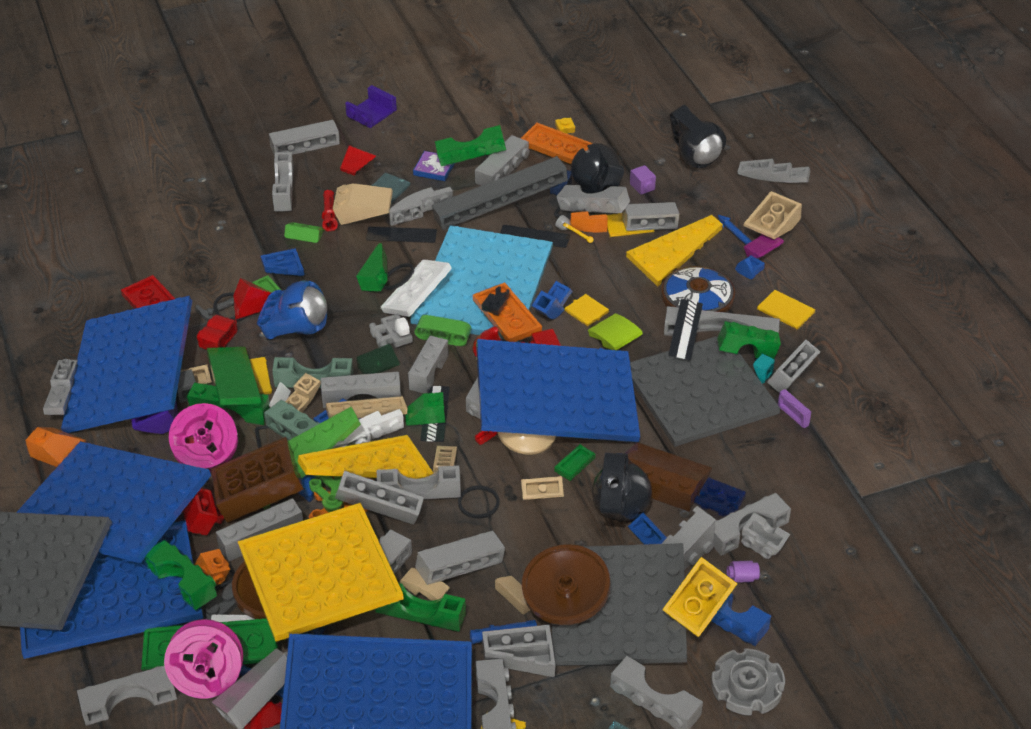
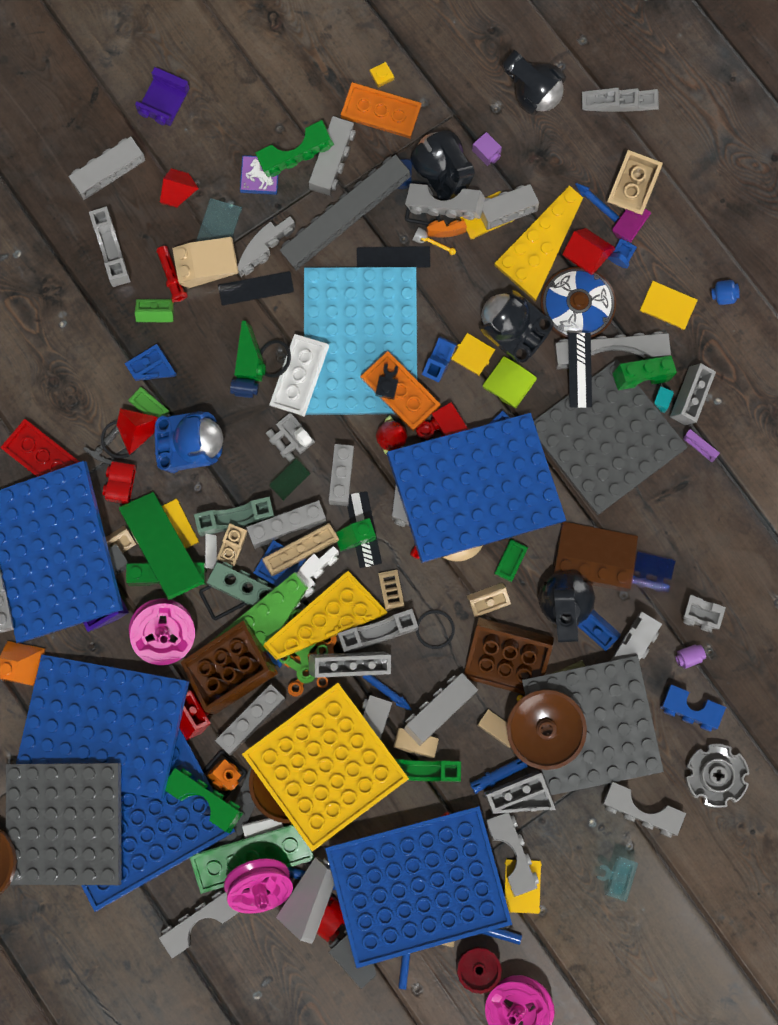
camera: 15 degrees left, 35 degrees up
(361, 290) = (244, 387): none -> dark blue brick
(402, 531) = (400, 701): none -> blue piece
(453, 330) = (341, 422): bright green beam -> none
(541, 524) = (507, 655): none -> reddish brown slope
(631, 286) = (514, 324): none -> black piece
(699, 597) = (664, 713): yellow slope -> none
(716, 255) = (587, 250): none -> red slope
(728, 528) = (701, 582): light grey arch -> none
(844, 305) = (725, 292): none -> blue head

